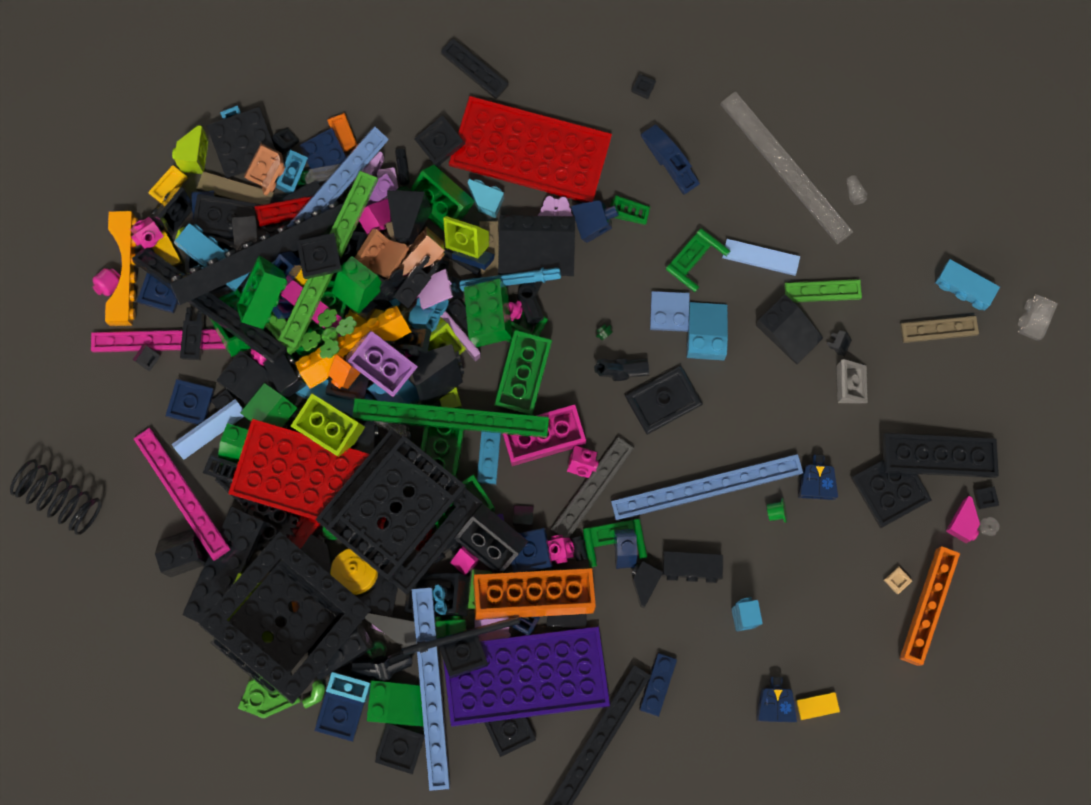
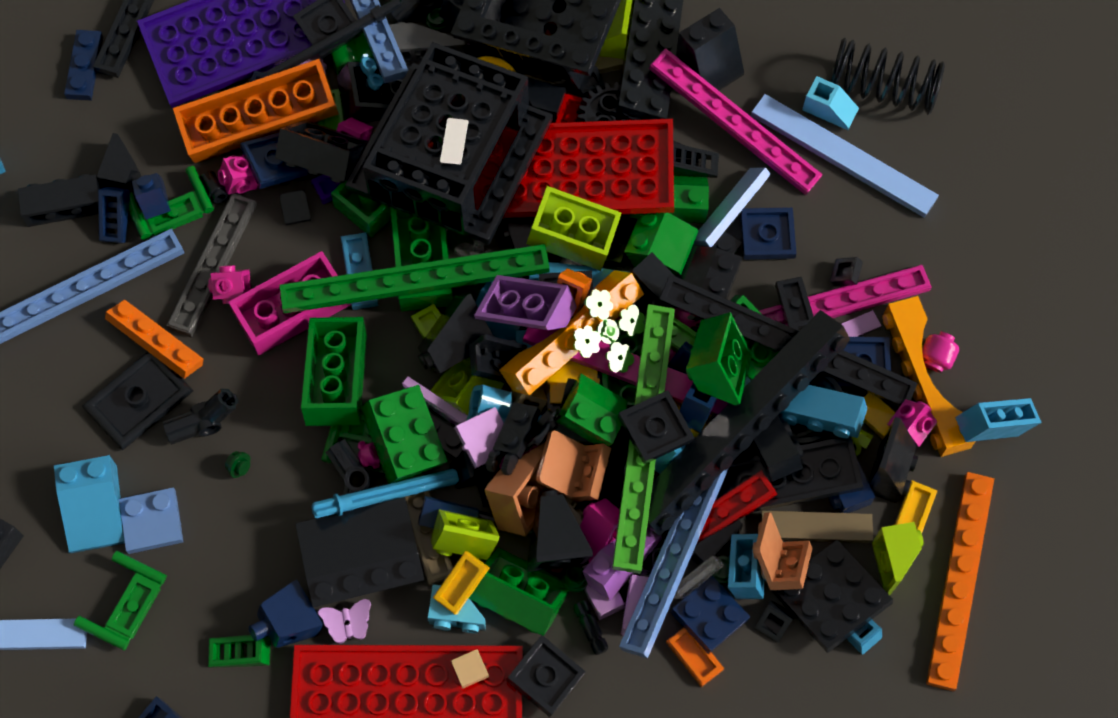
camera: 165 degrees right, 10 degrees down
(89, 216) = (998, 420): none -> dark azure brick
(106, 490) = (830, 103): none -> medium azure slope
(111, 452) = (844, 155): none -> light blue tile
(153, 320) = (862, 324): none -> lavender window
(156, 135) = (960, 582): none -> orange plate
(394, 488) = (454, 141): none -> white sticker
(476, 203) = (461, 582): none -> yellow tile
(485, 155) = (469, 668): none -> tan tile
(644, 439) = (154, 339): none -> orange plate
(655, 544) = (121, 215): none -> dark blue slope

